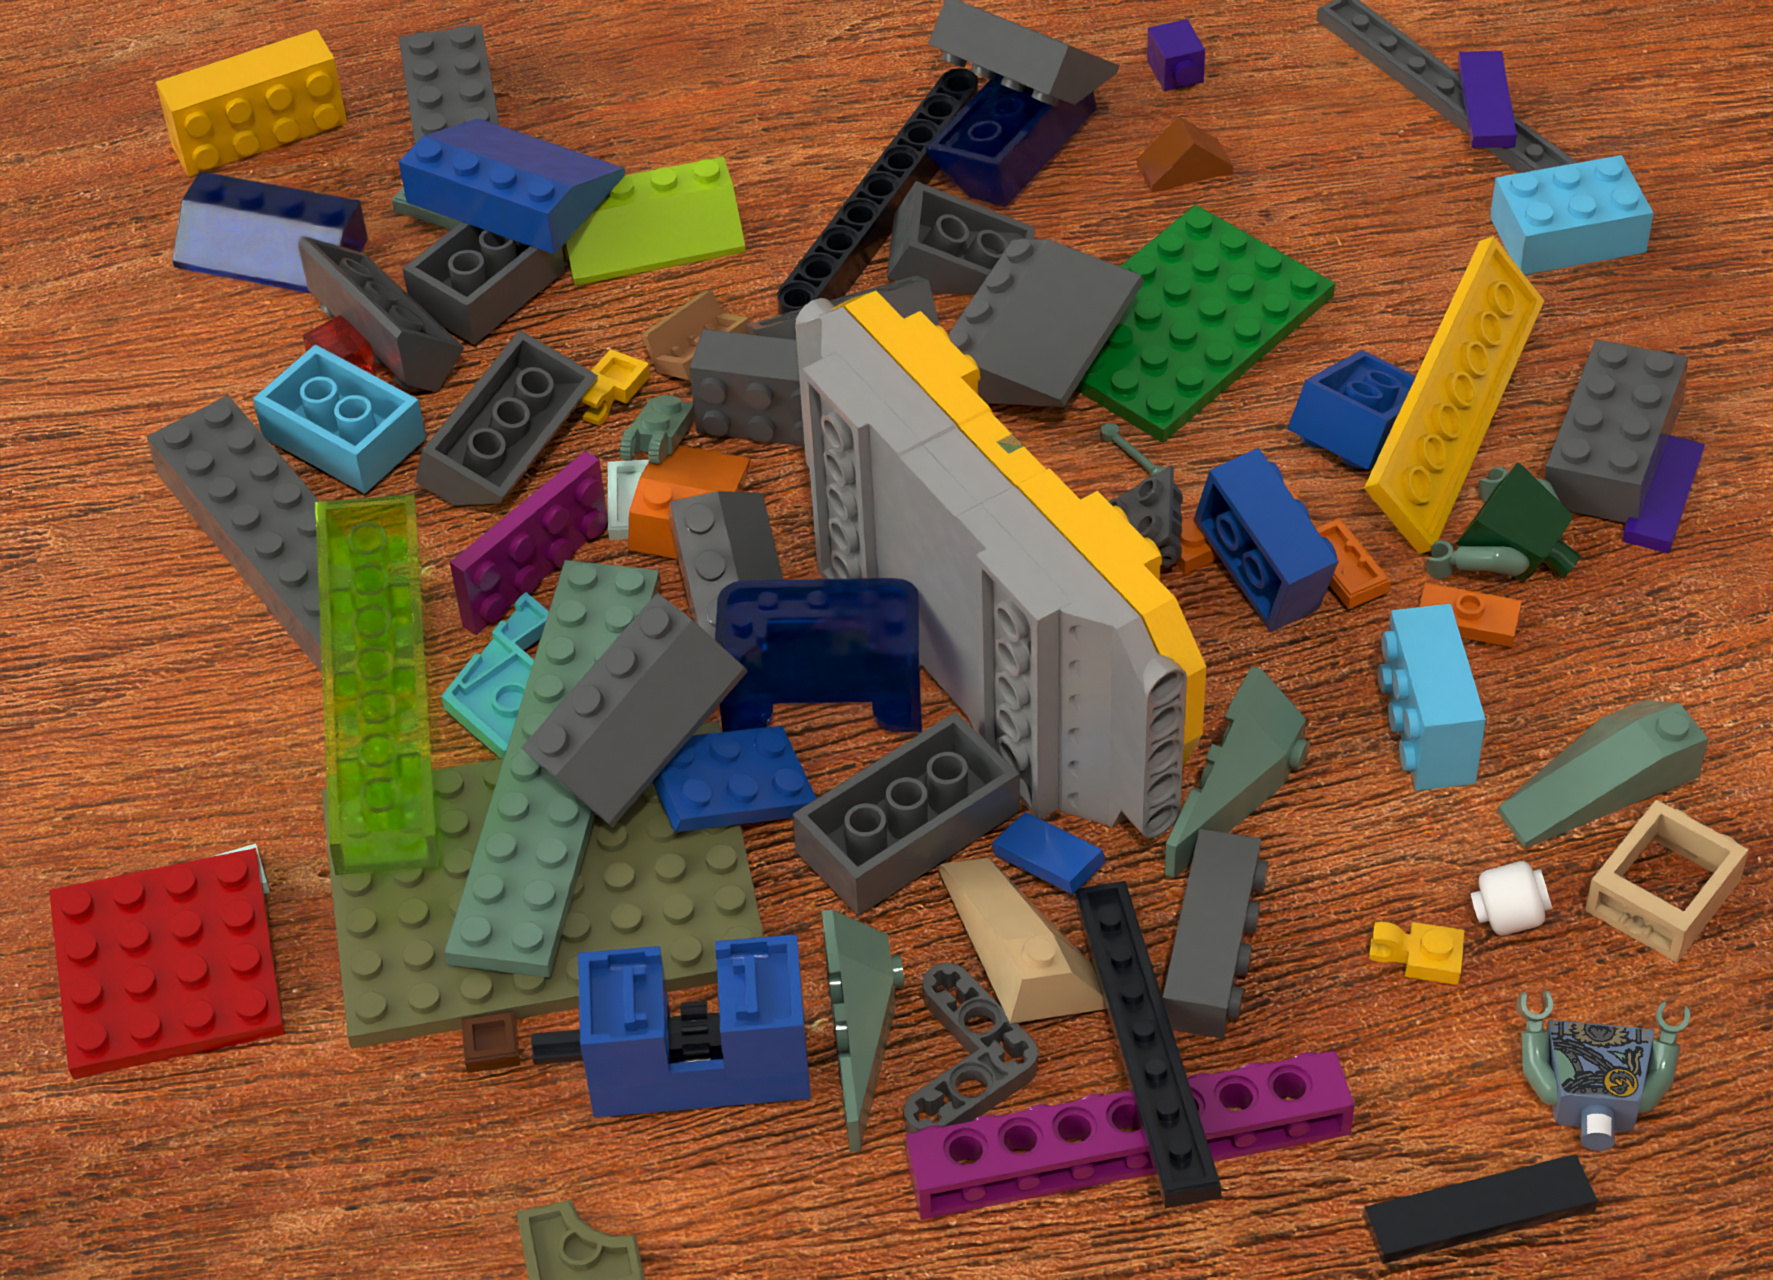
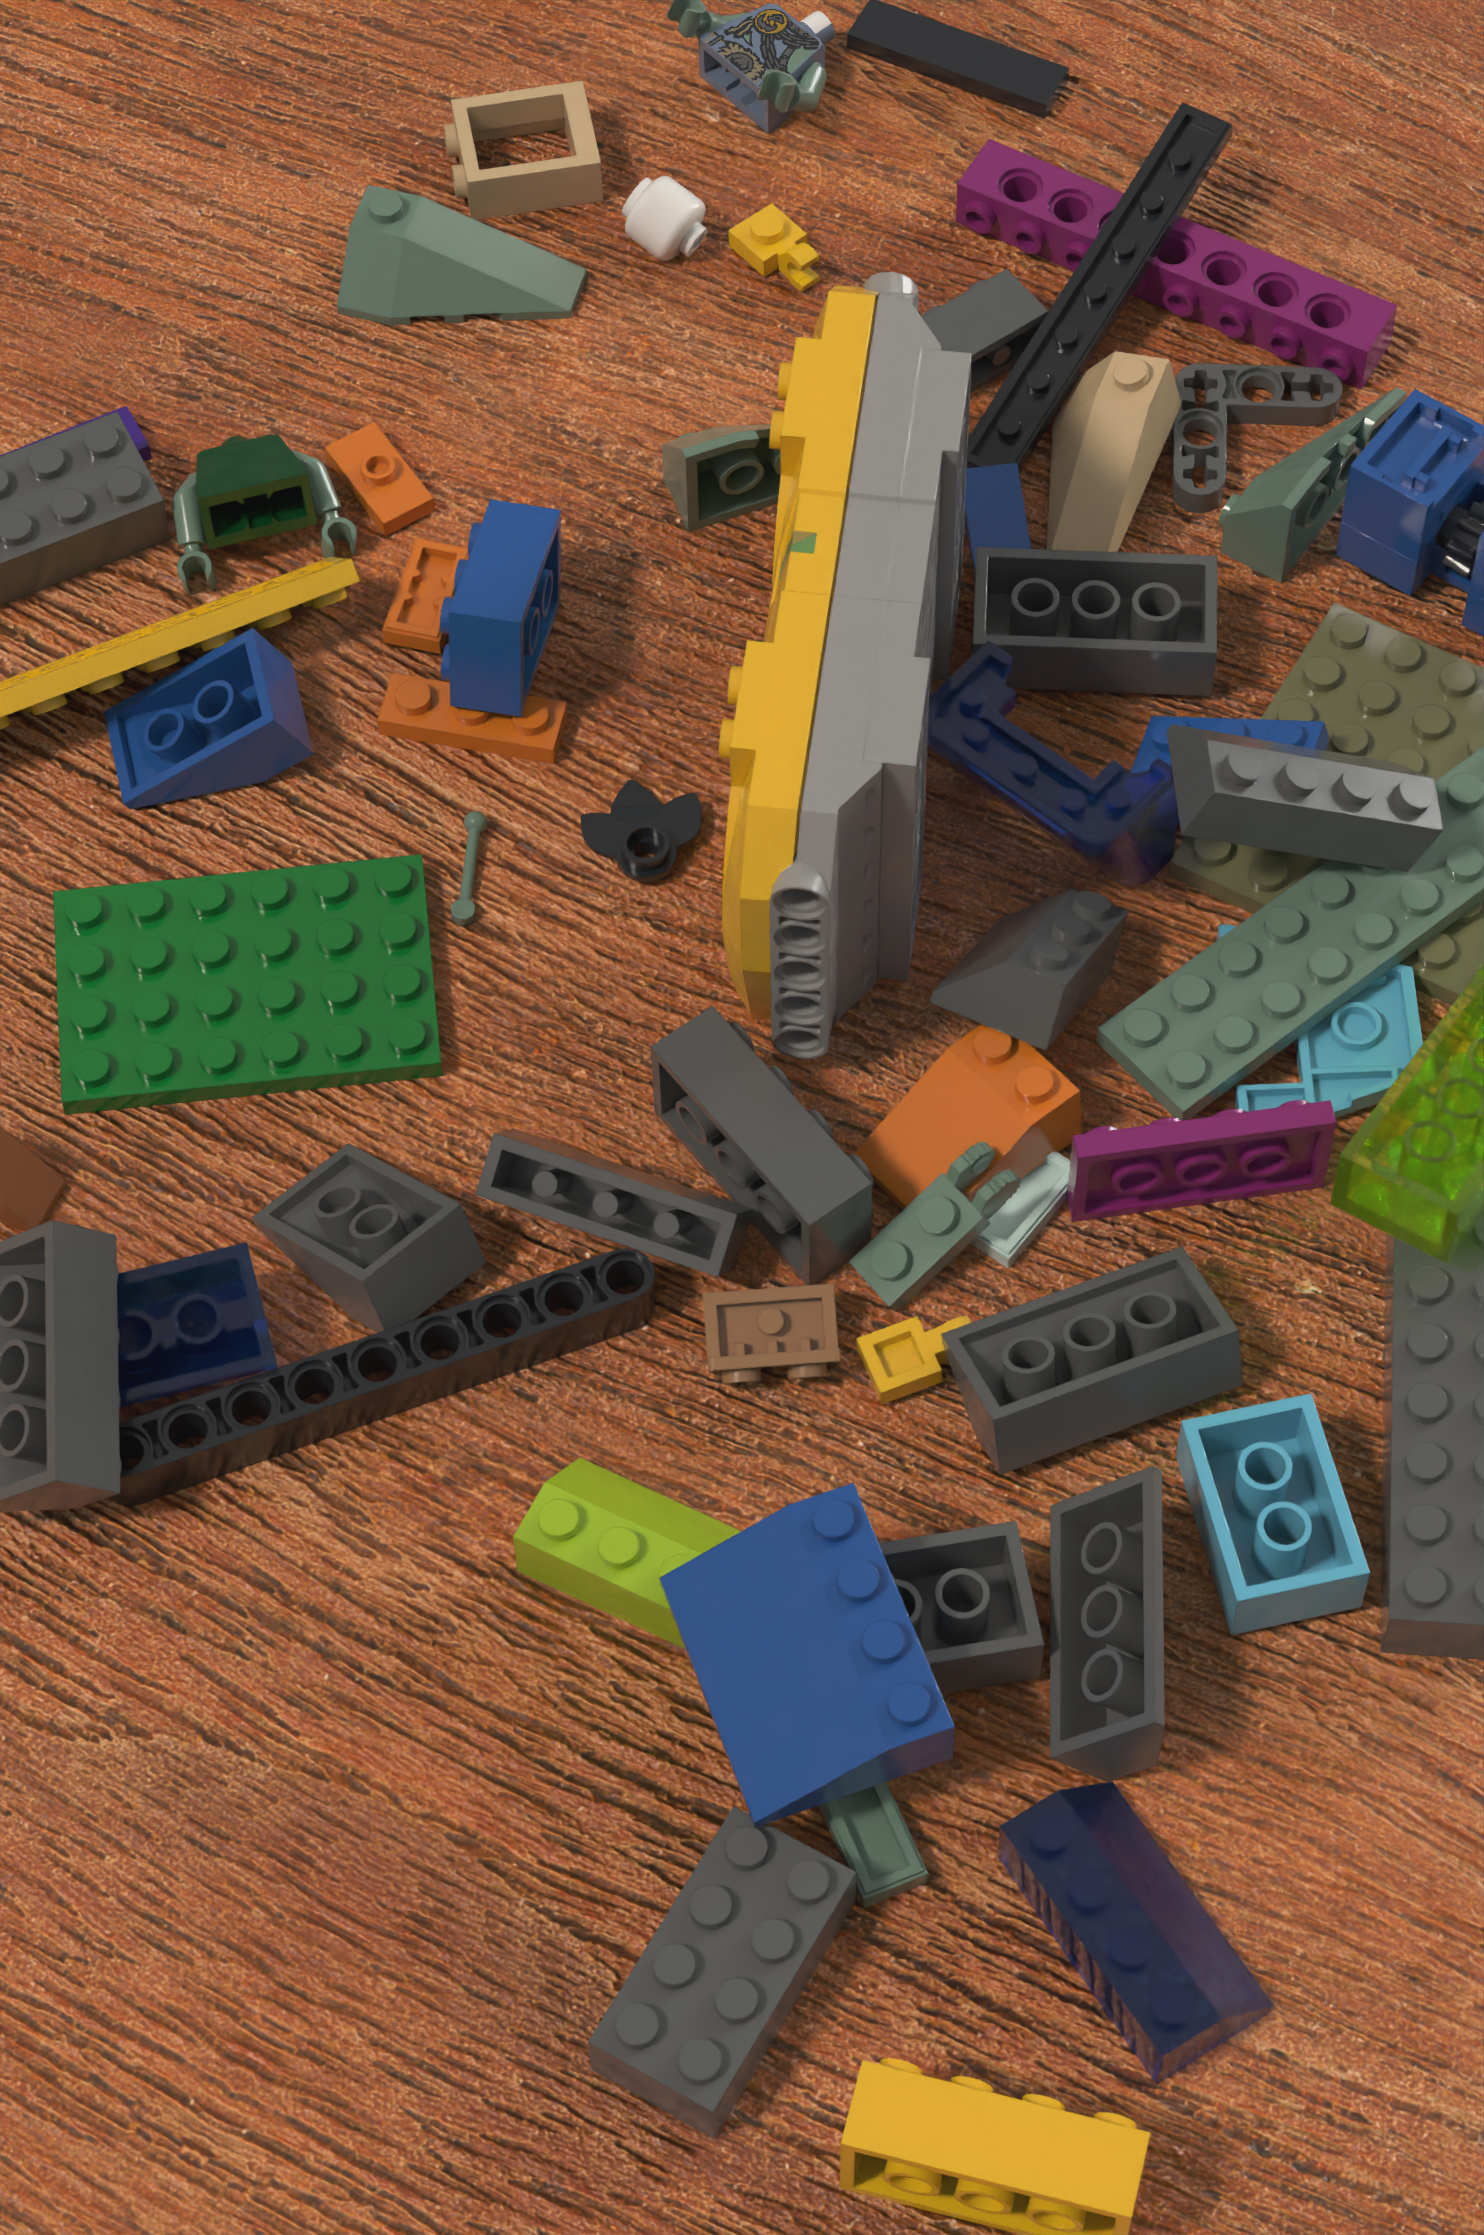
camera: 140 degrees left, 10 degrees up
(343, 341) = (1195, 1637): clear red brick -> none
(1041, 321) = (428, 1023): dark grey slope -> none
(1156, 512) = (575, 752): dark grey hinge -> none
(1431, 697) = (532, 385): medium azure brick -> none

